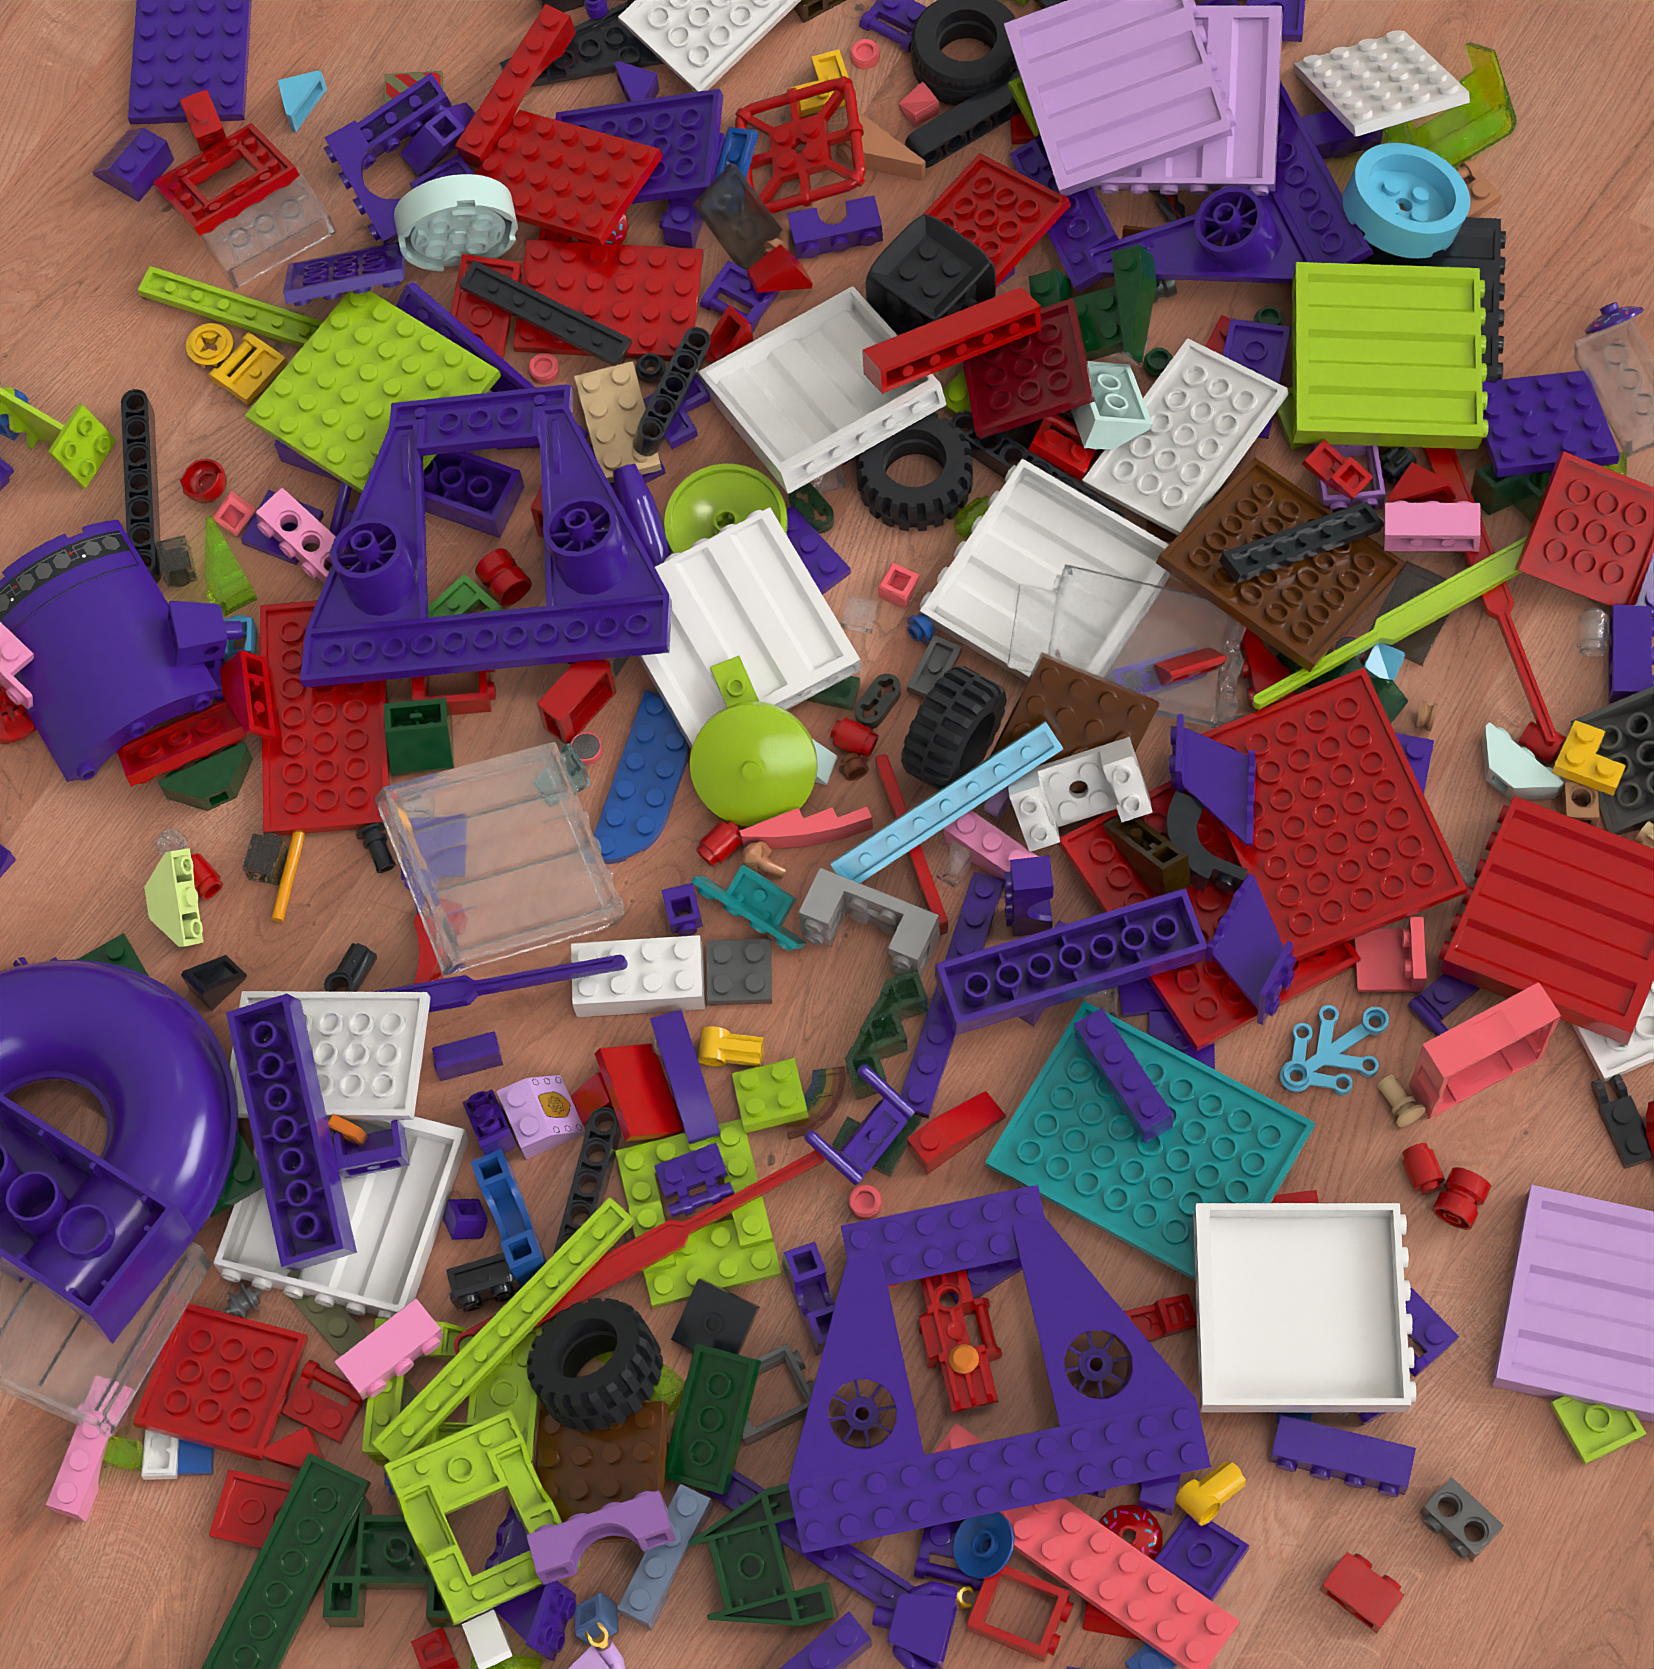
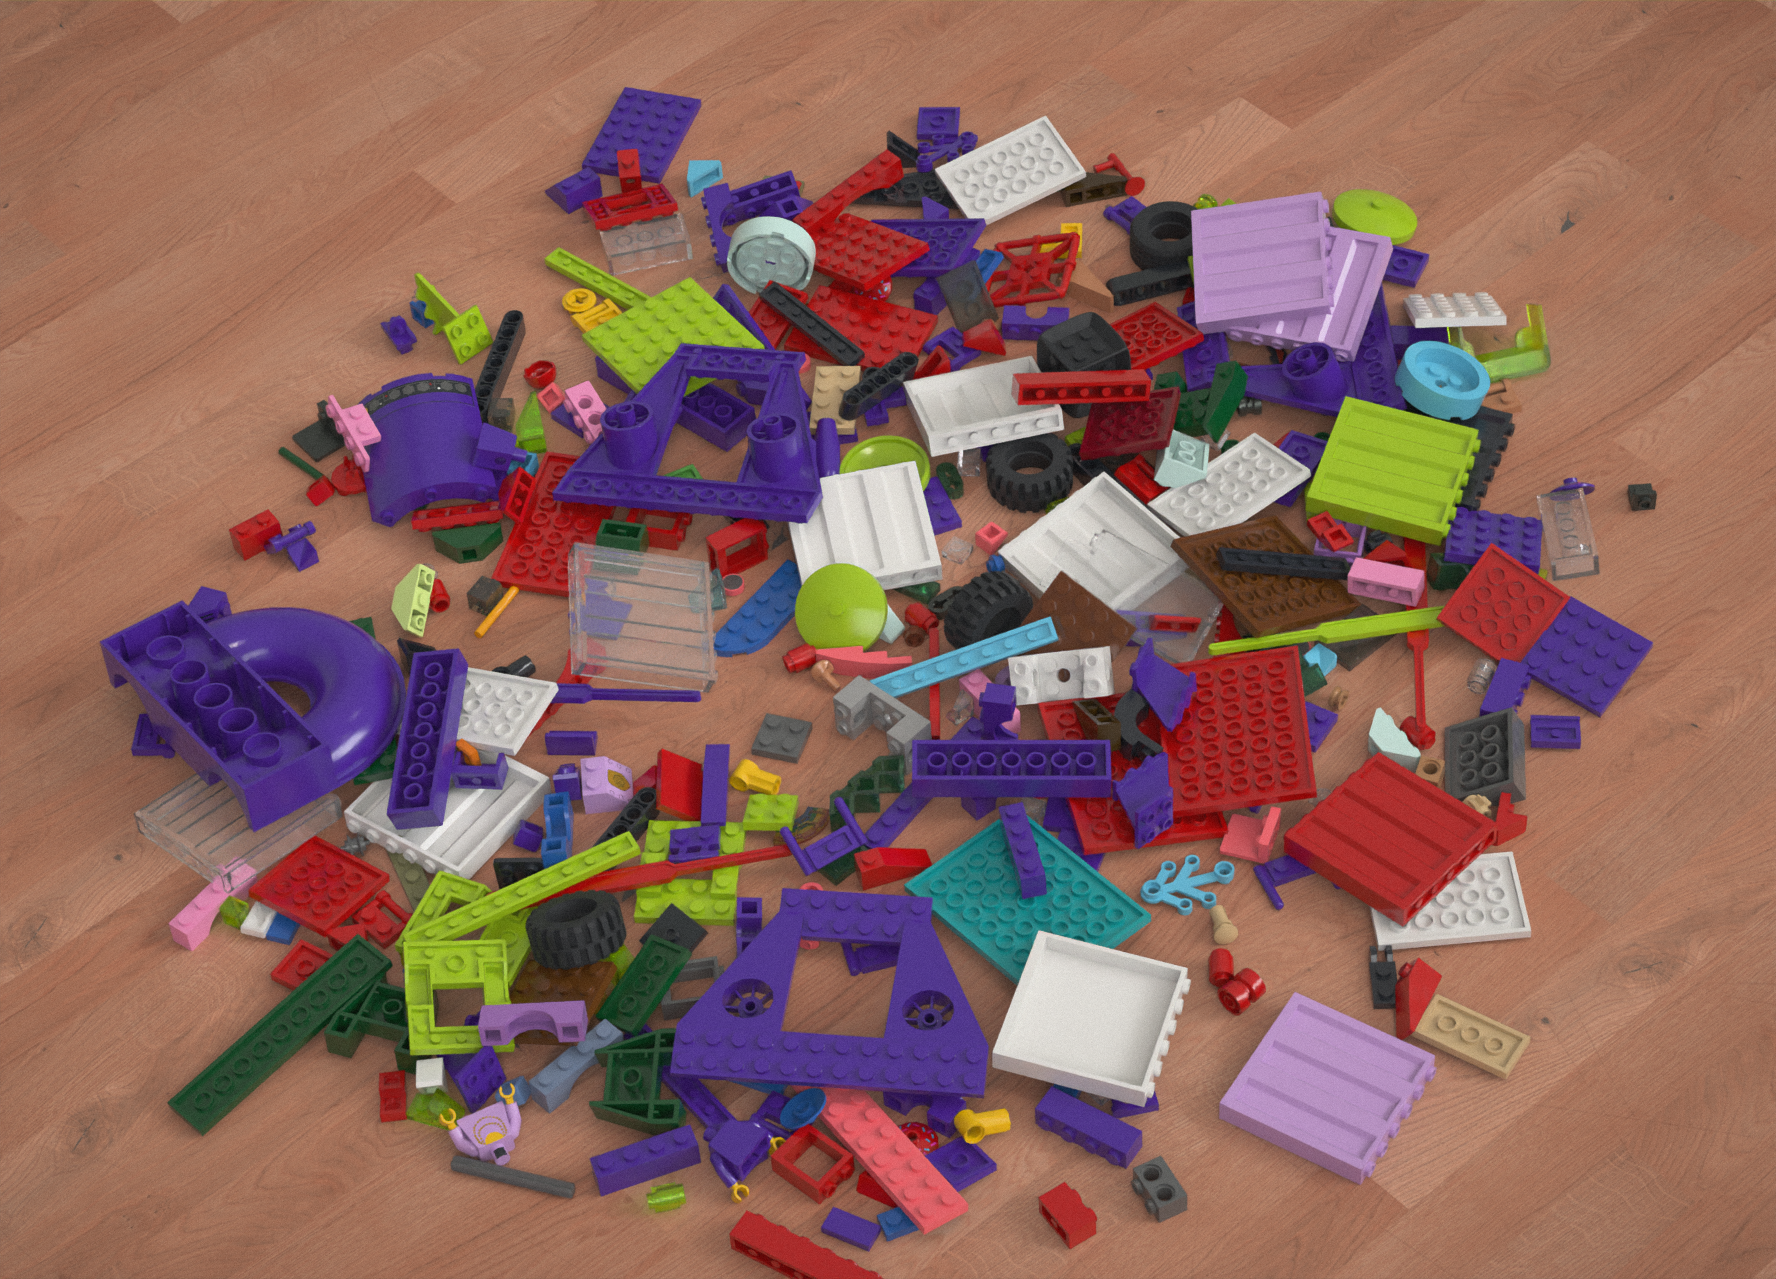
camera: 15 degrees right, 20 degrees down
(344, 272) = (683, 272): dark purple plate -> none
(377, 846) = (561, 600): black pin -> none
(390, 1350) = (439, 886): bright pink brick -> none
(503, 577) = (717, 467): red wheel -> none
(658, 978) = (711, 721): white brick -> none
(680, 900) = (757, 694): dark purple brick -> none
(733, 682) = (846, 552): lime plate -> none
(756, 900) = (812, 695): teal bracket -> none
(865, 54) = (1100, 232): coral tile -> none
(919, 104) = (1126, 265): coral slope -> none
(947, 1340) = (831, 983): red piece -> none
(1164, 1317) = (990, 1016): red slope -> none
(1428, 1332) = (1182, 1068): dark purple plate -> none
(1484, 1050) = (1288, 892): coral tile -> none
(1582, 764) = (1442, 747): yellow plate -> none
(1595, 1428) = (1284, 1159): lime plate -> none

